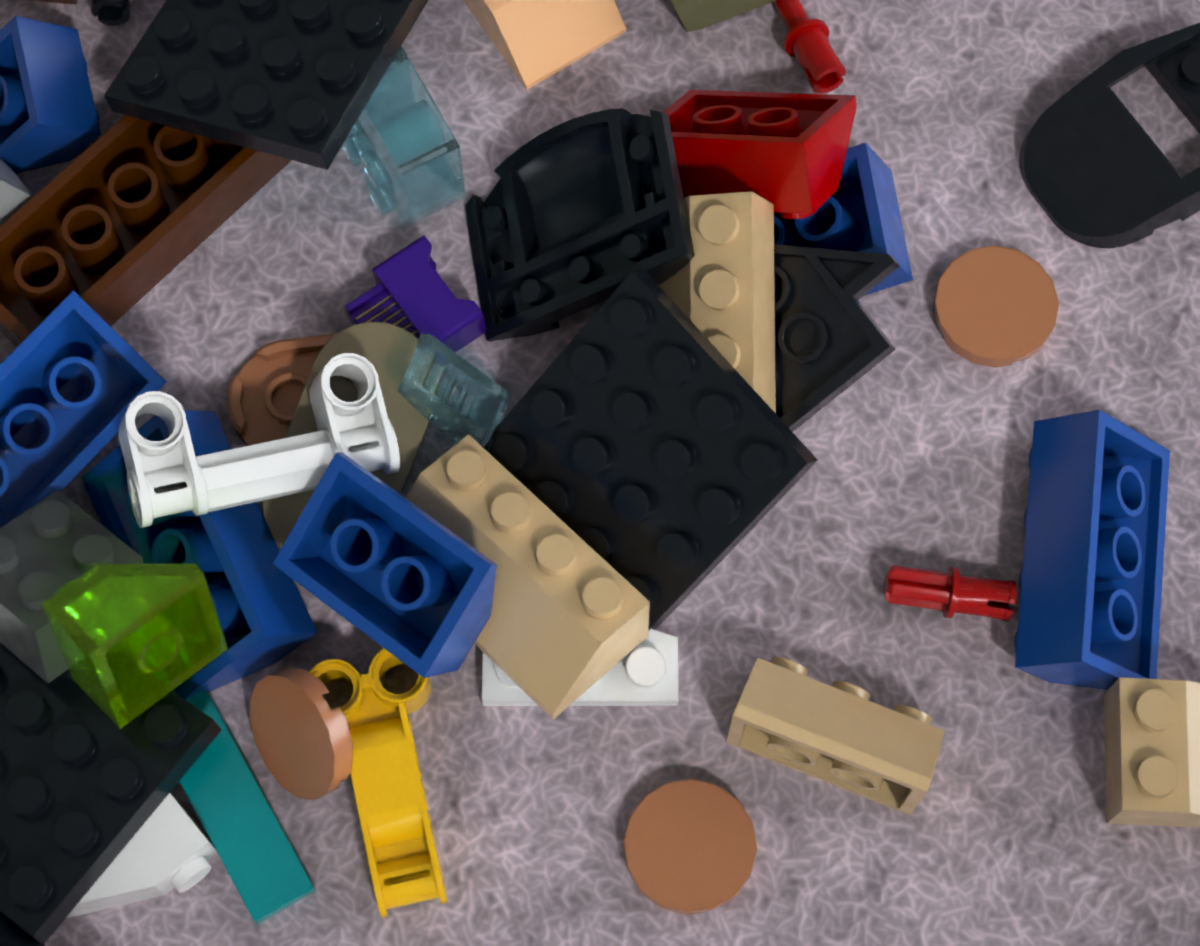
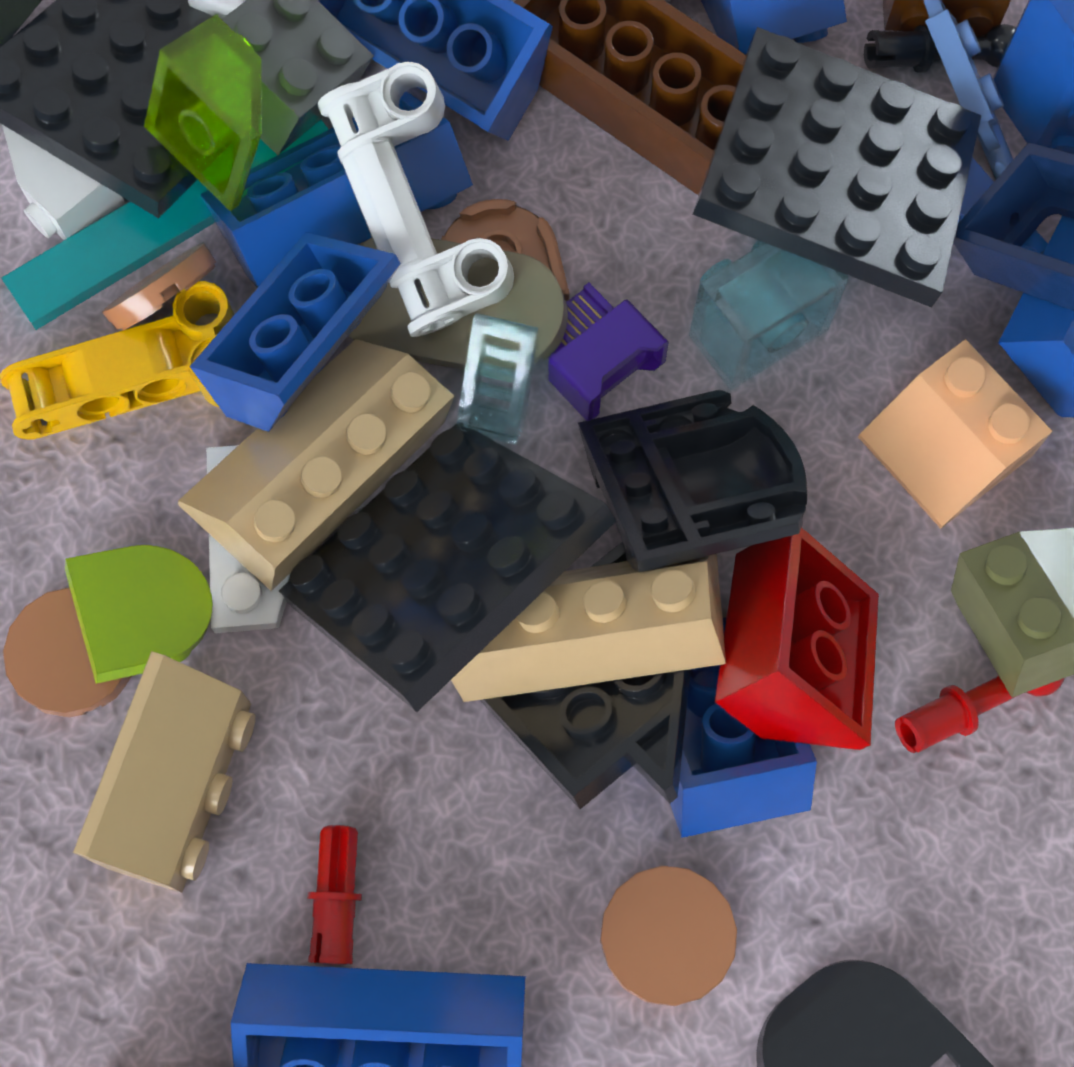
camera: 85 degrees right, 0 degrees up
(655, 768) = (137, 604): none -> lime tile

